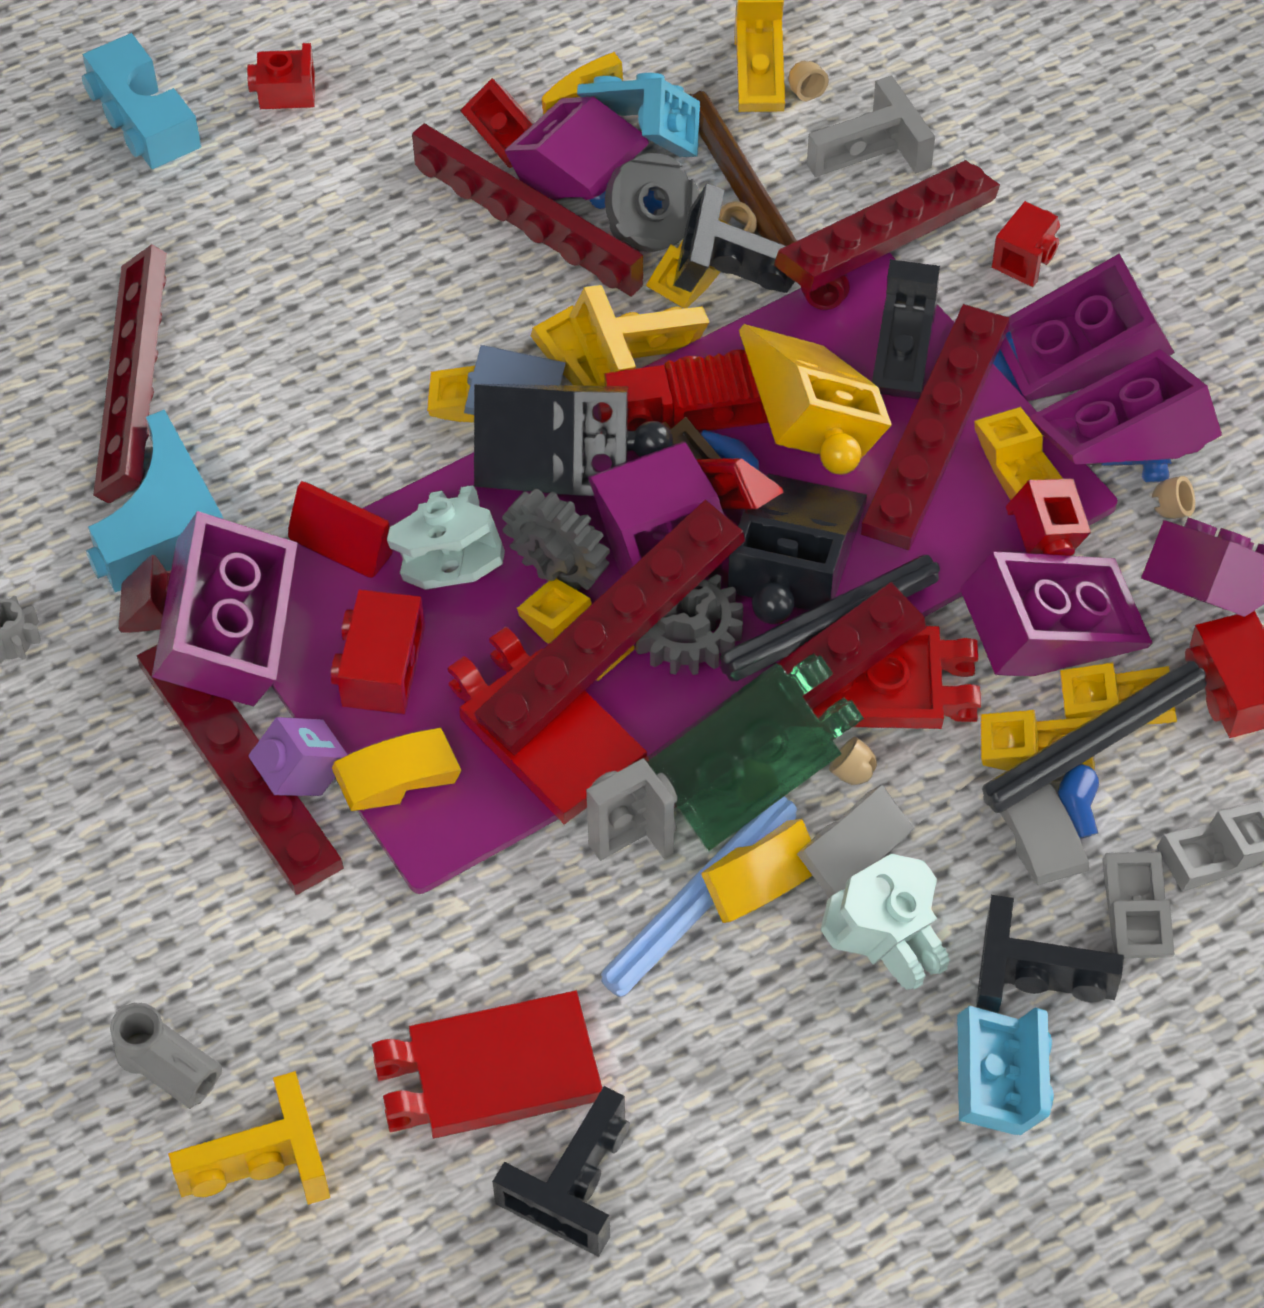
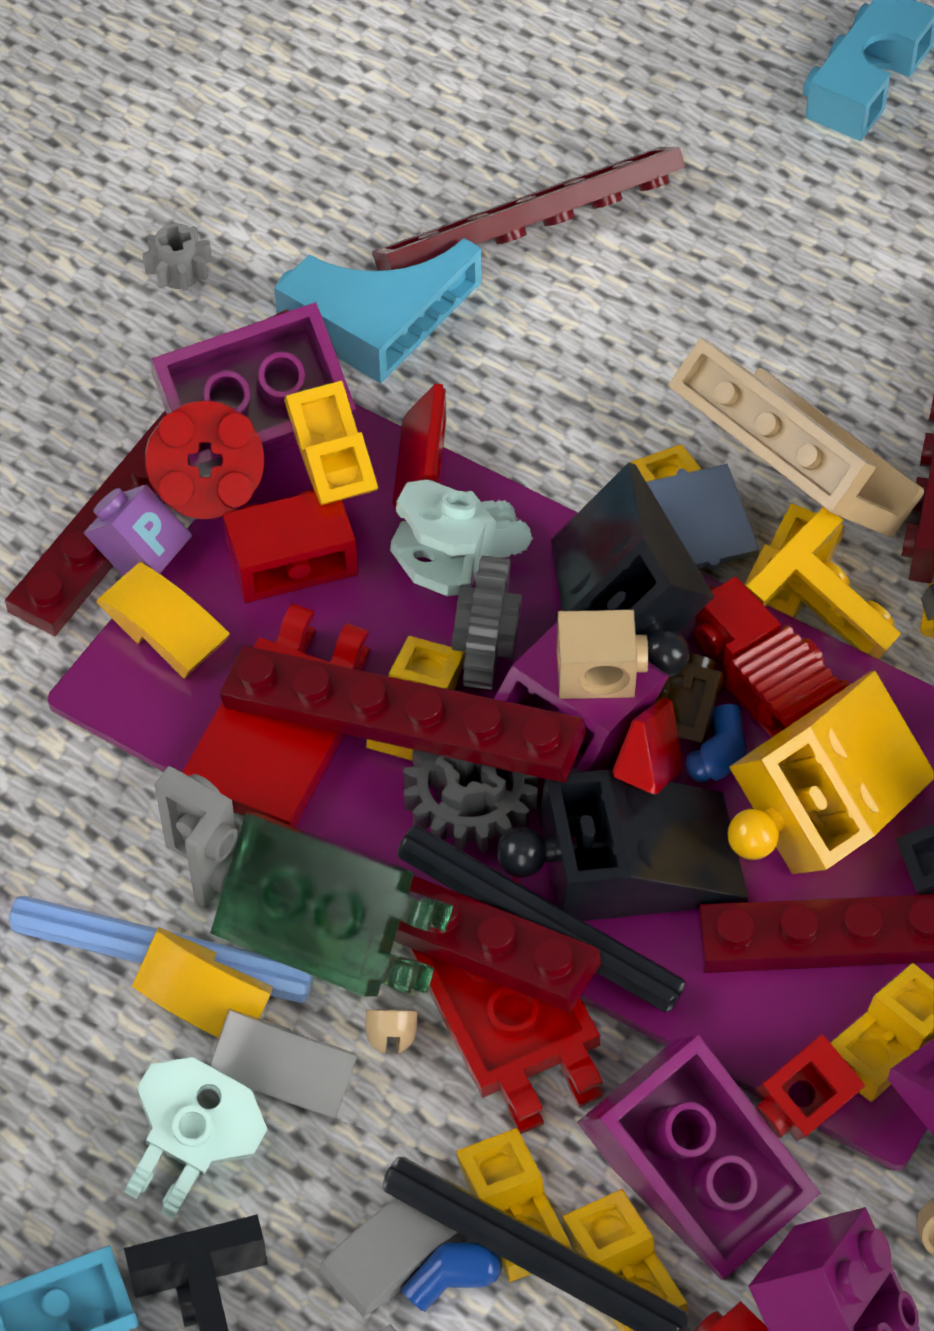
camera: 65 degrees right, 0 degrees up
(302, 647) = (229, 436): none -> red plate
(329, 575) = (330, 443): none -> yellow slope
(502, 283) = (797, 440): none -> tan panel
(657, 465) = (599, 654): none -> tan brick

